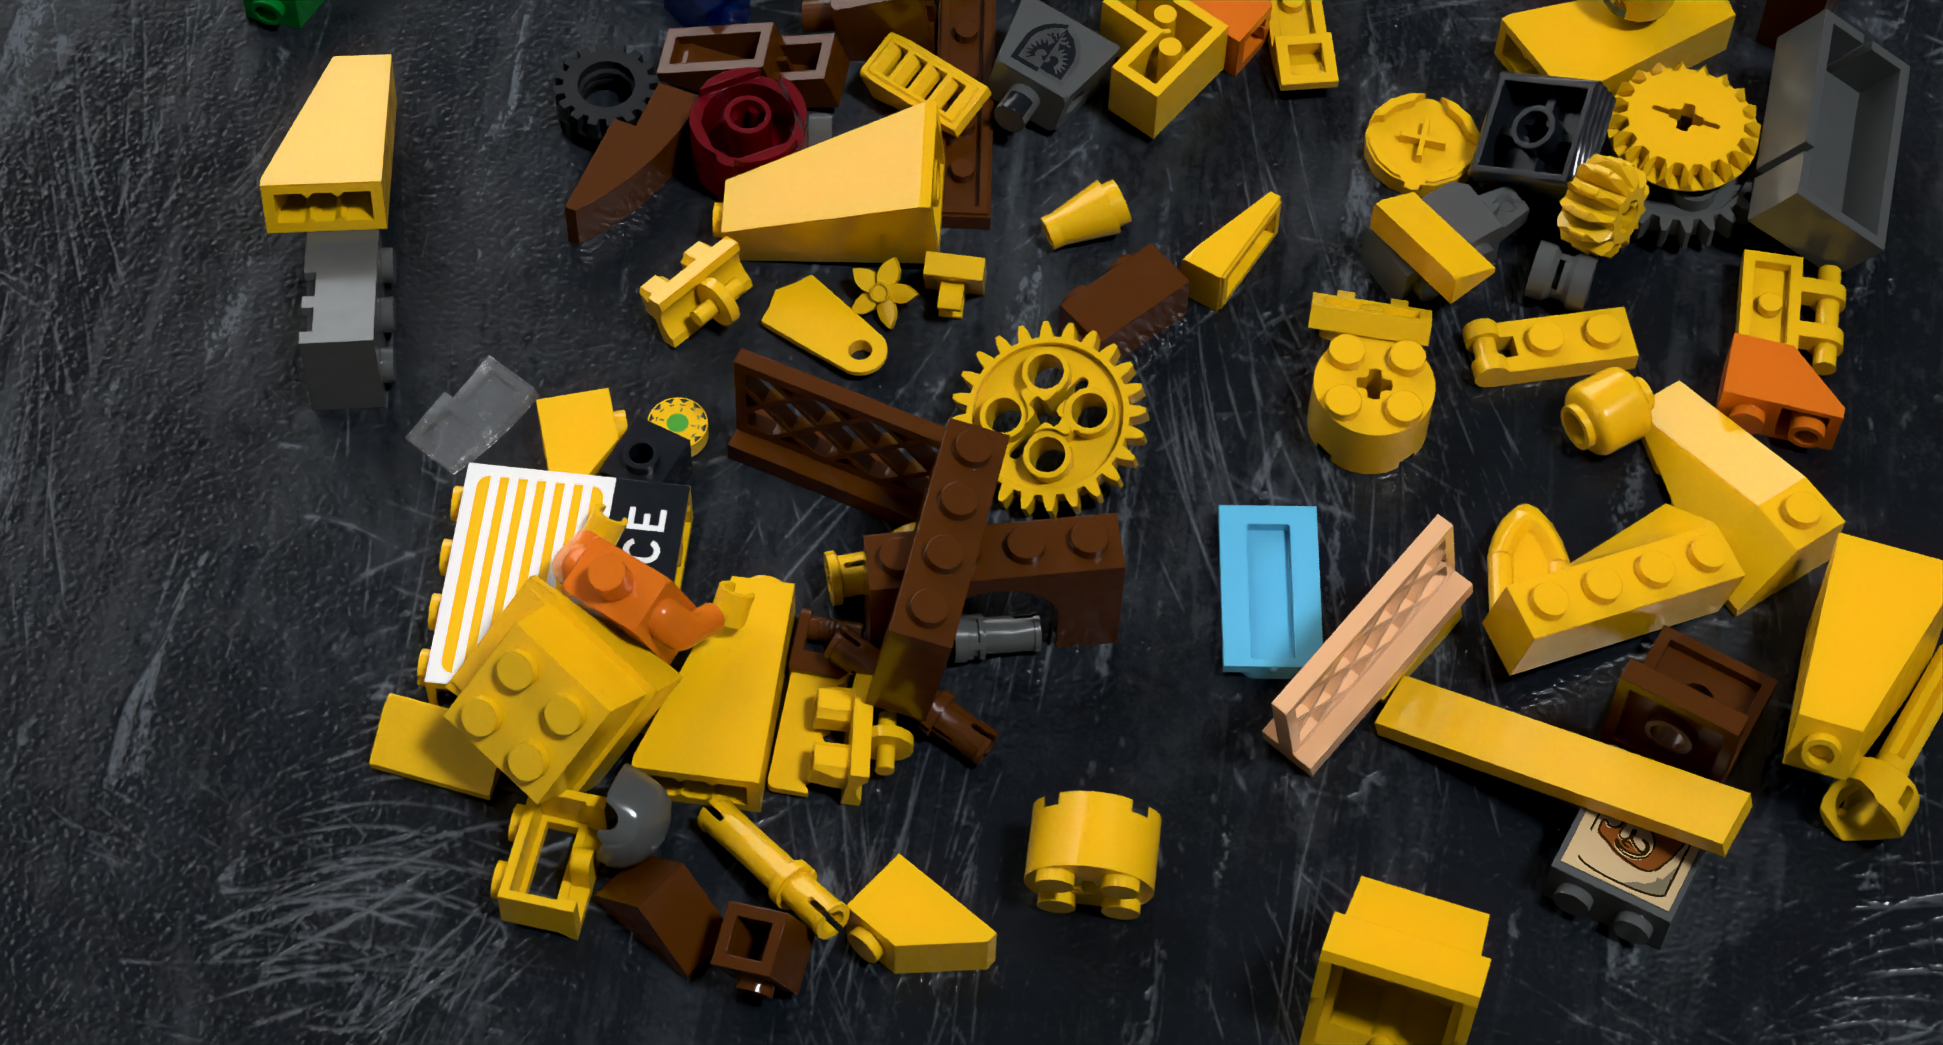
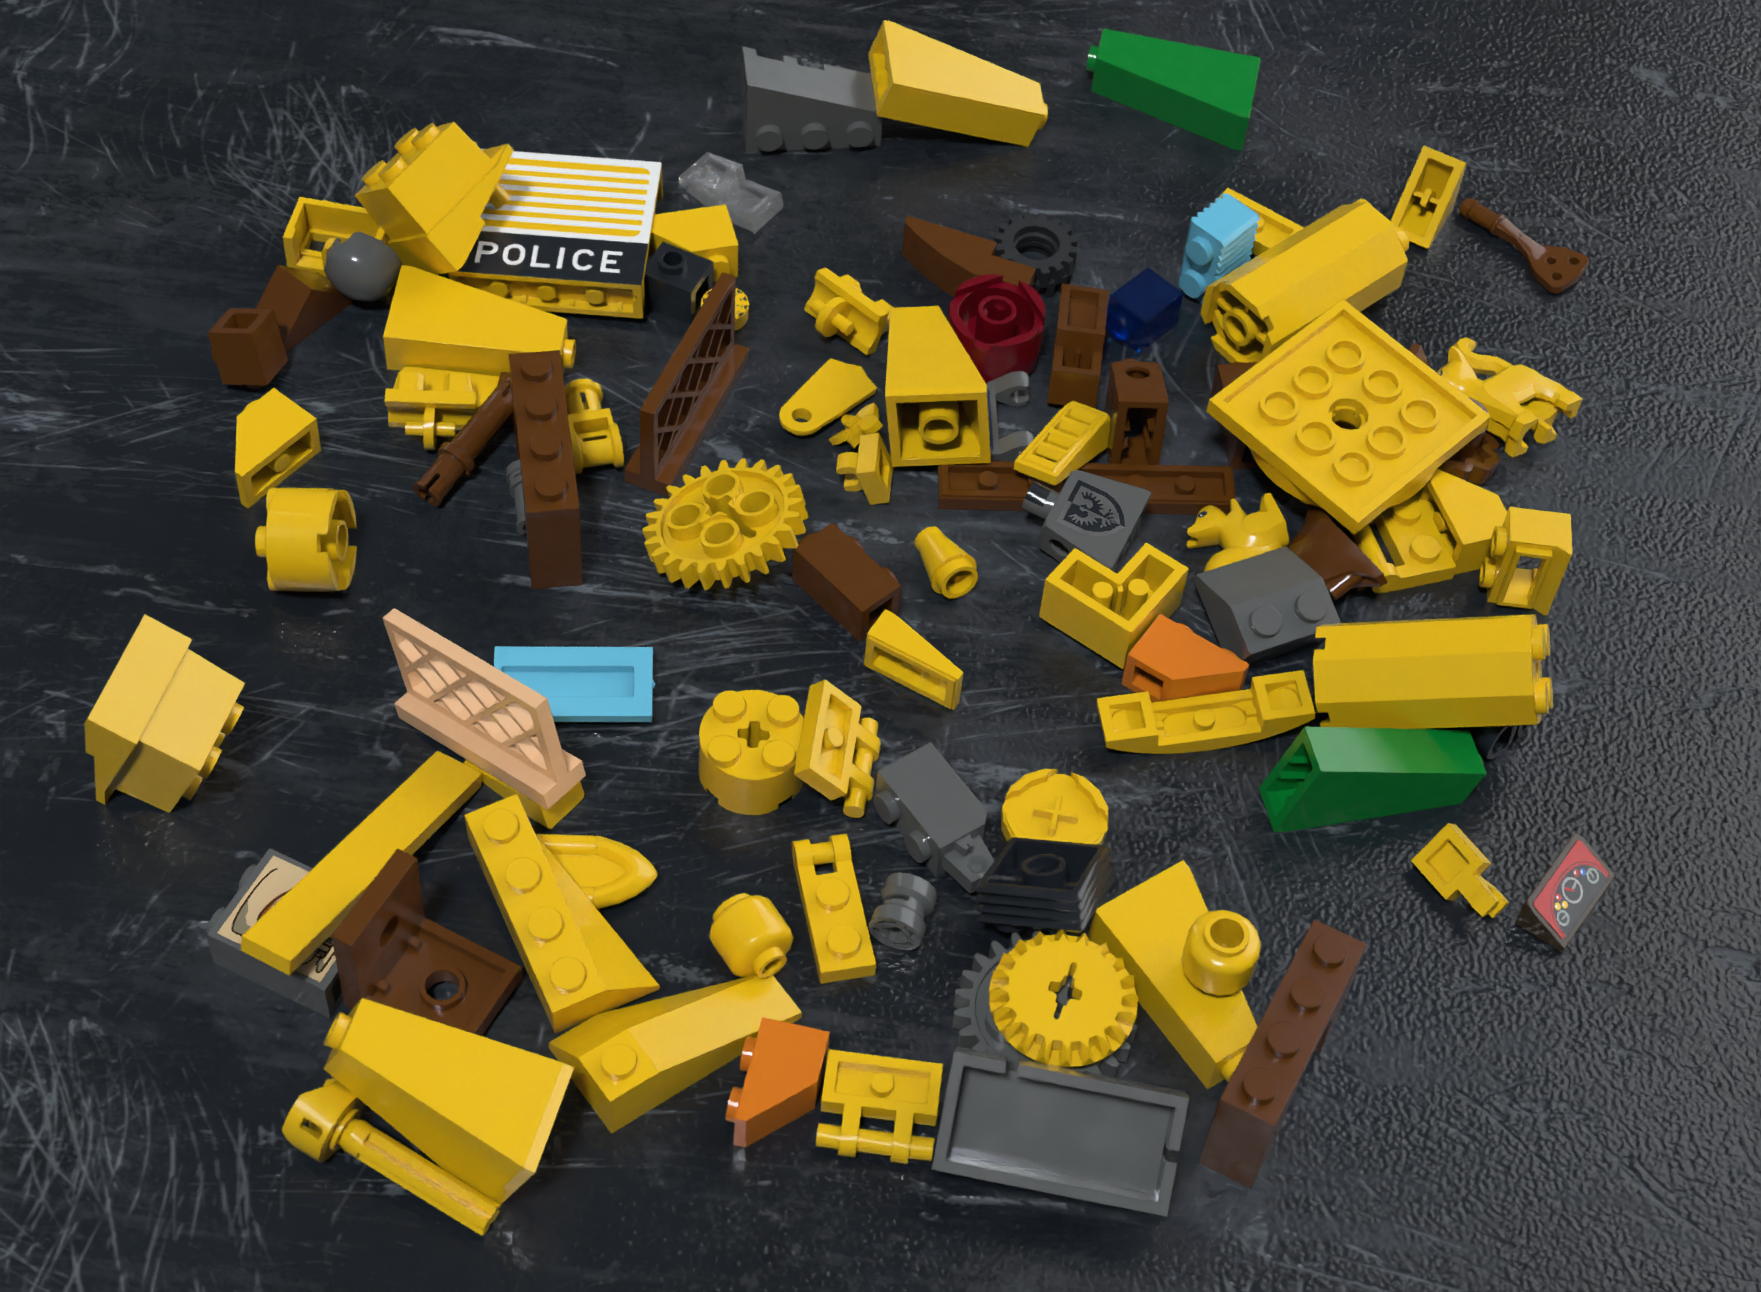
camera: 85 degrees right, 5 degrees down
(637, 597) = (519, 226): orange torso -> none
(789, 881) = (303, 362): yellow pin -> none
(938, 569) = (598, 399): reddish brown arch -> none
(1429, 245) = (905, 779): yellow slope -> none
(1603, 205) = (958, 919): yellow gear -> none

